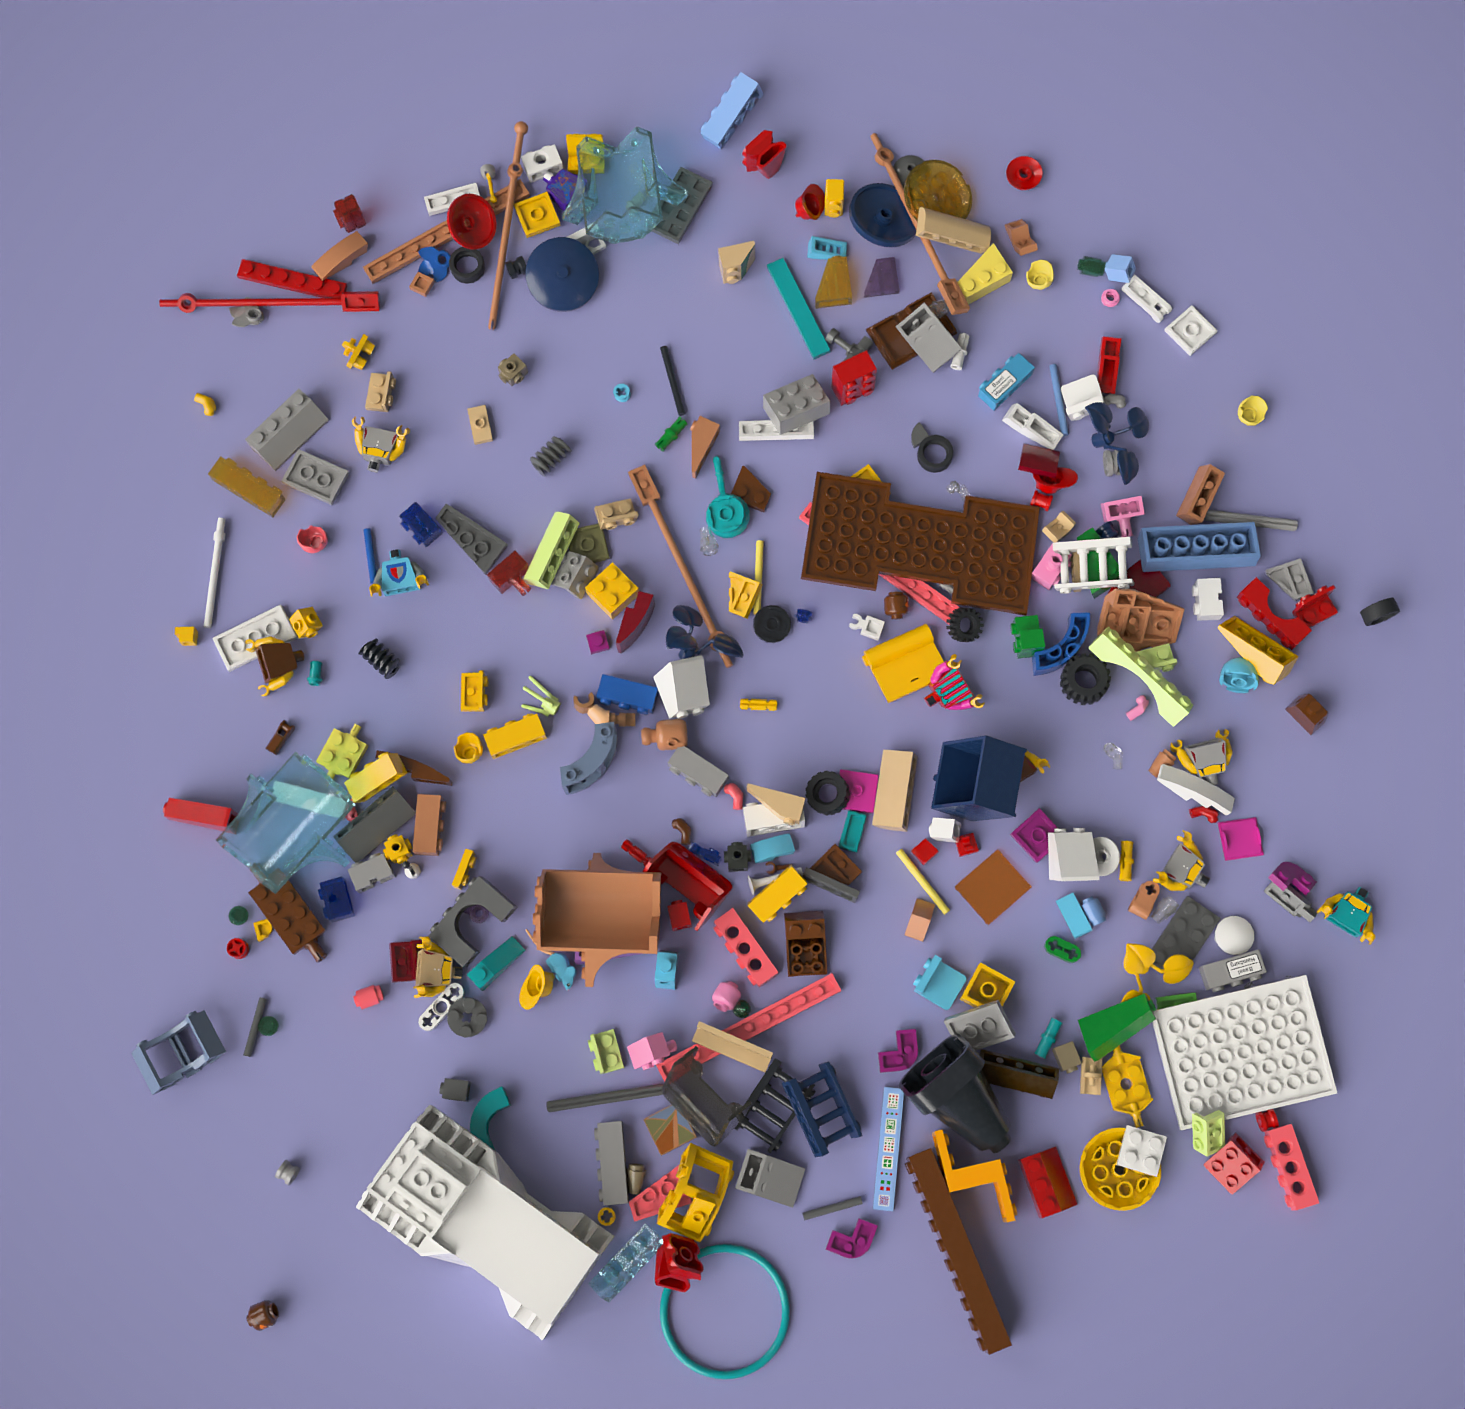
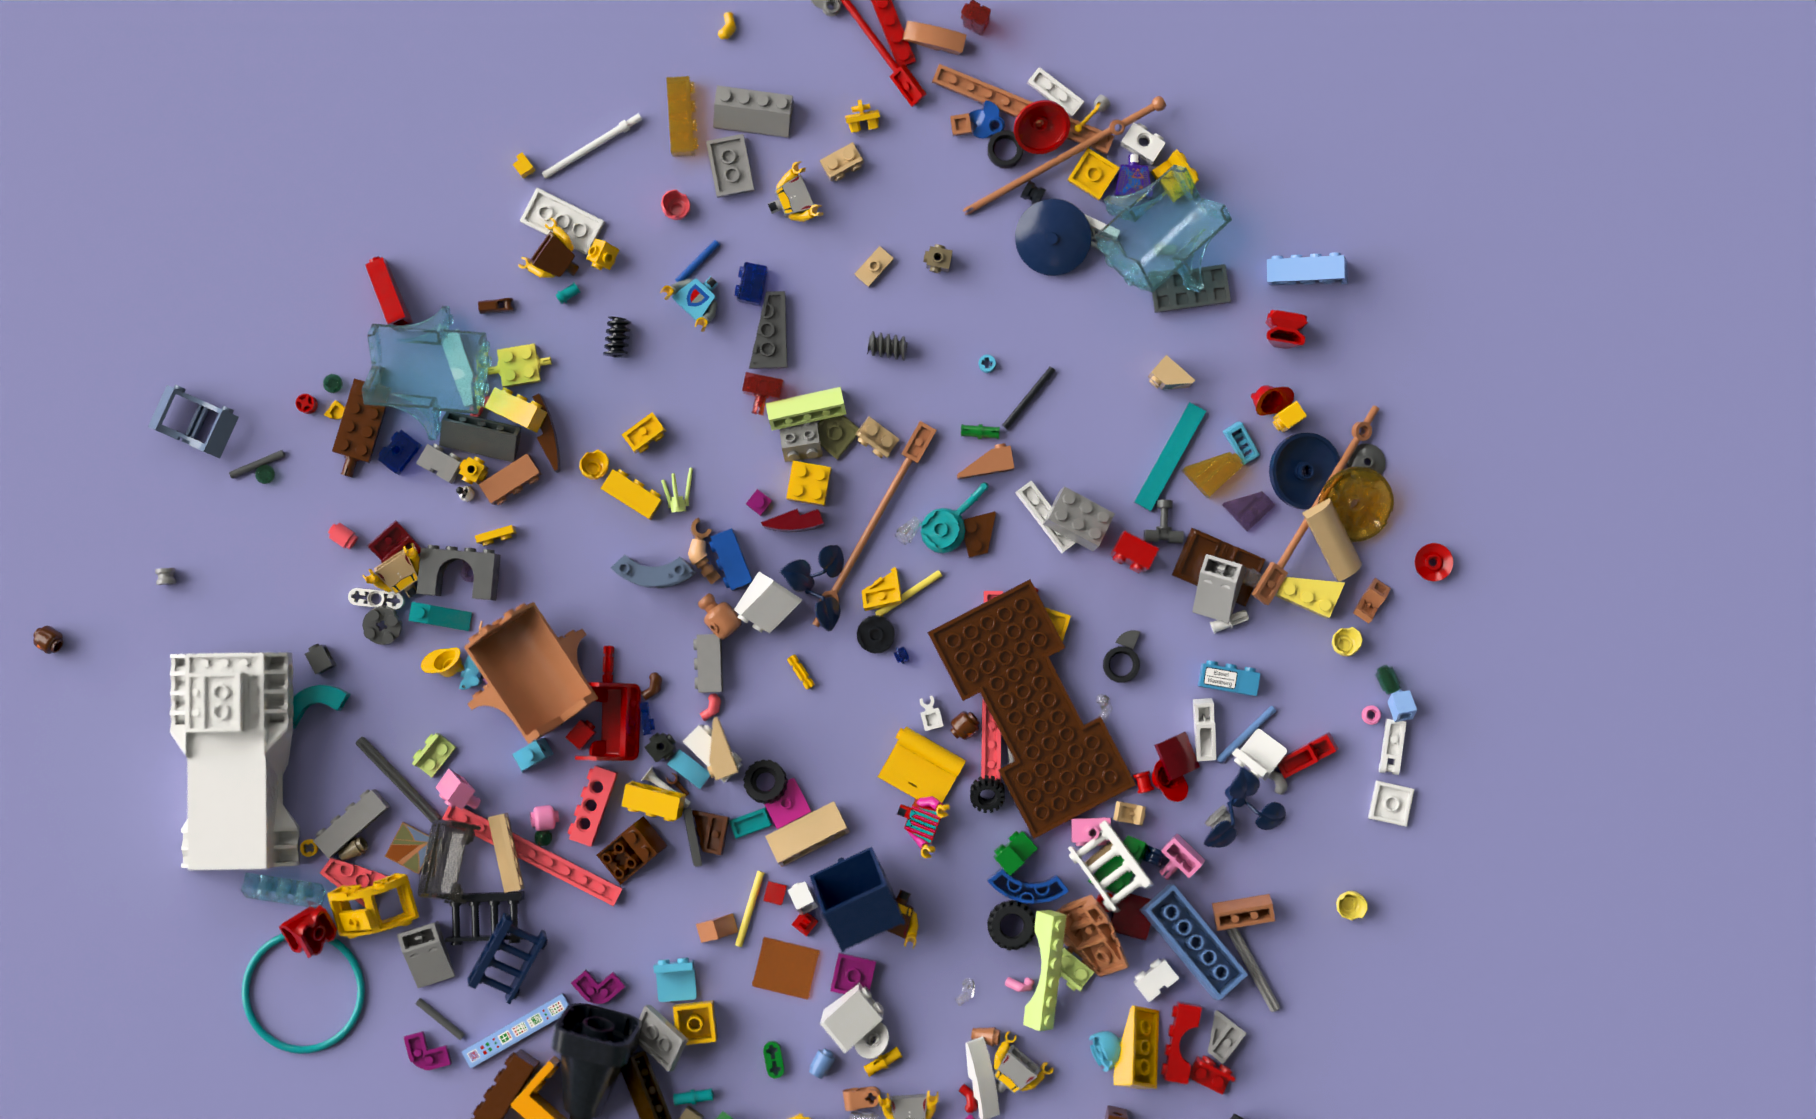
camera: 55 degrees right, 10 degrees up
(1074, 915) = (807, 1050): medium azure slope -> none

